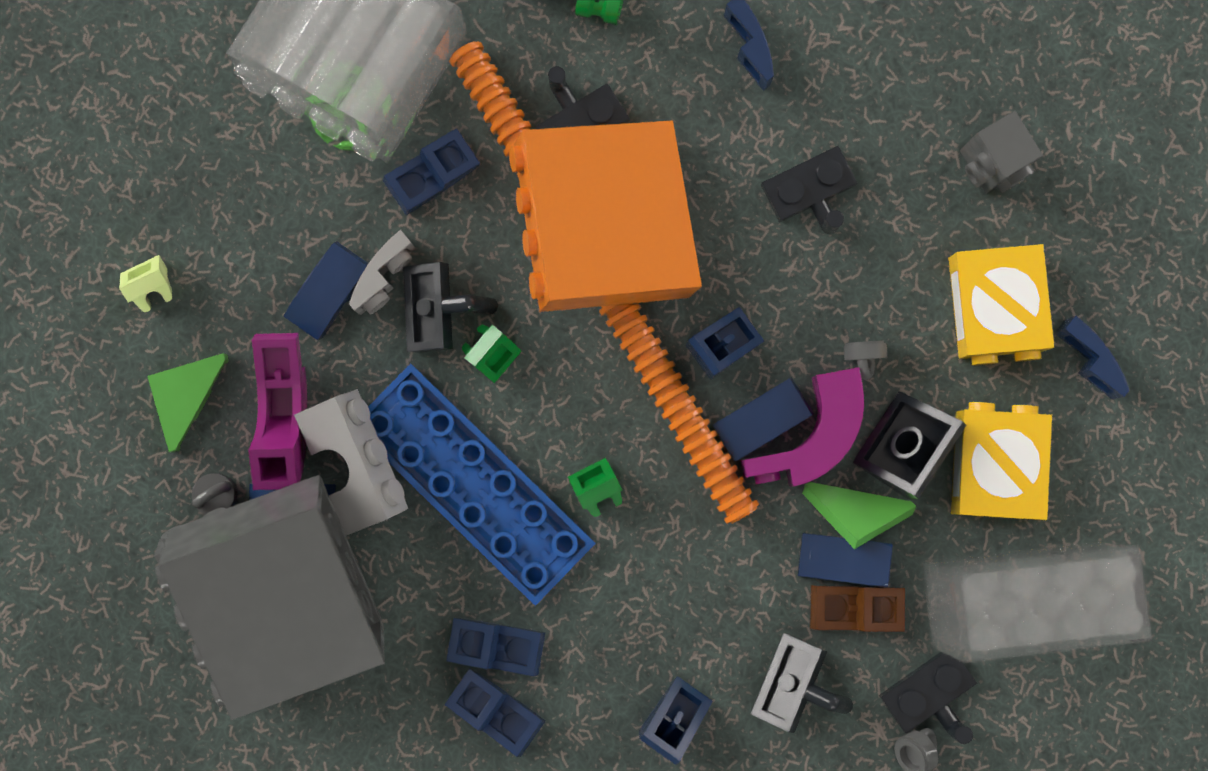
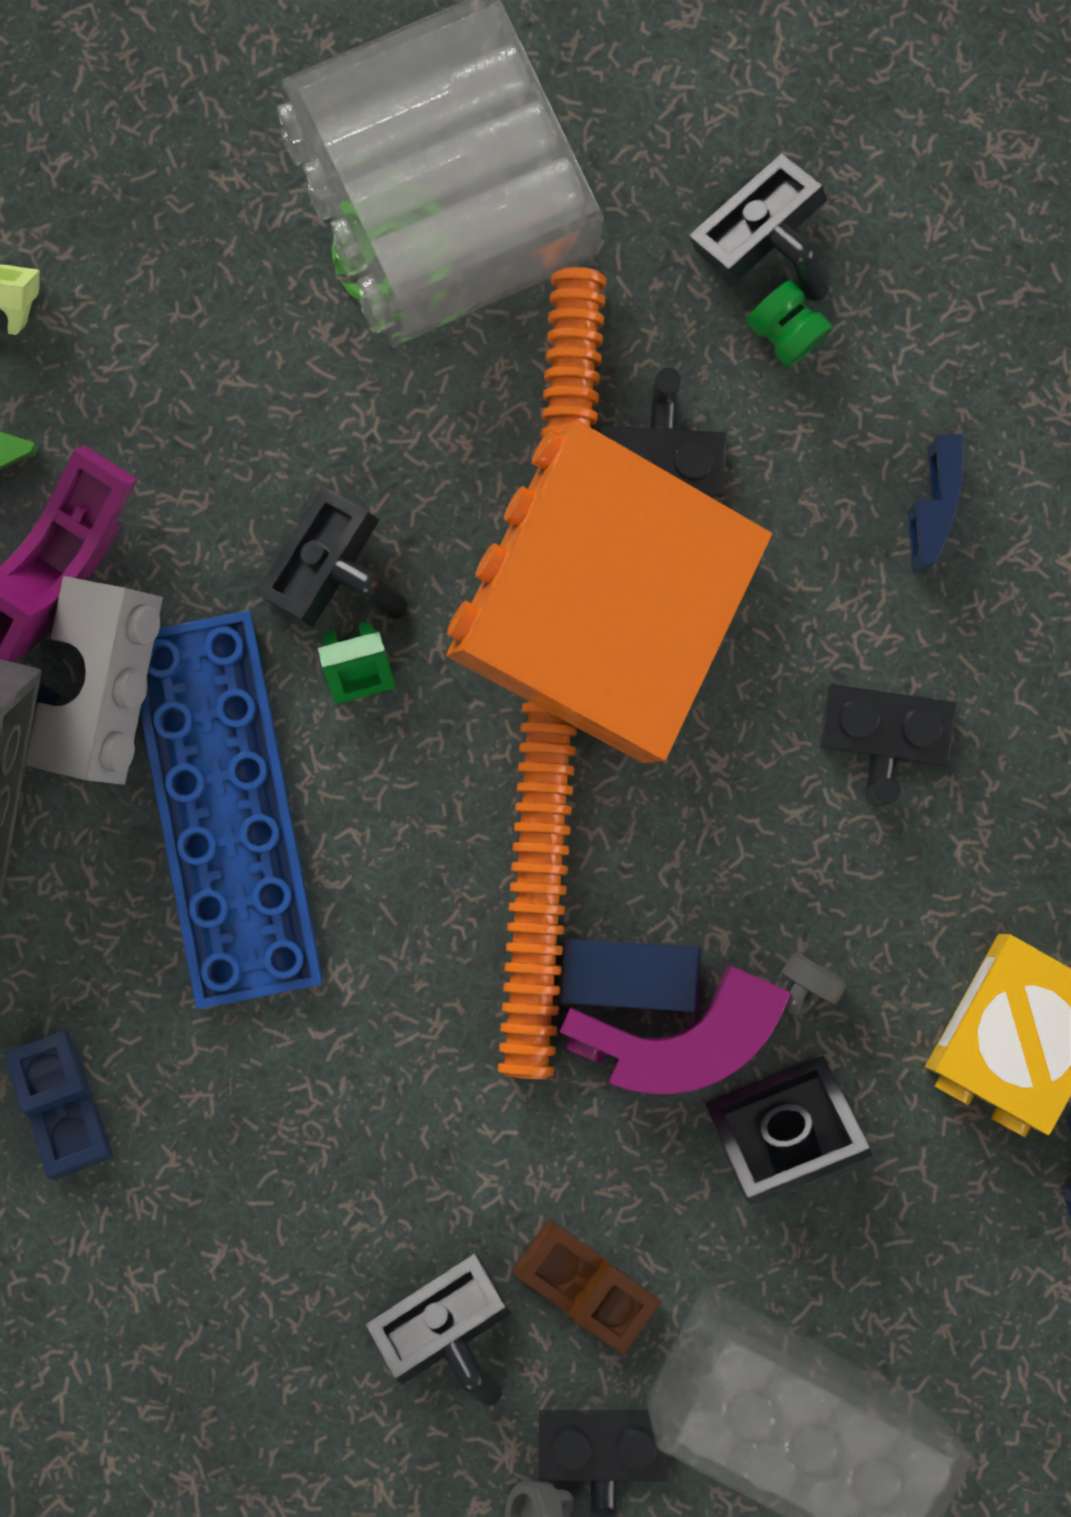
camera: 30 degrees right, 0 degrees up
(326, 291) = (210, 452): dark blue slope -> none
(372, 286) = (270, 483): light grey slope -> none
(431, 172) = (437, 395): dark blue slope -> none
(495, 646) = (114, 1025): dark blue slope -> none
(595, 485) = (370, 913): green tile -> none
(675, 720) = (267, 1267): dark blue slope -> none
(724, 342) = (649, 848): dark blue slope -> none
(837, 561) = (612, 1216): dark blue slope -> none
(855, 513) = (665, 1171): bright green tile -> none
(1002, 462) = (887, 1232): yellow brick -> none

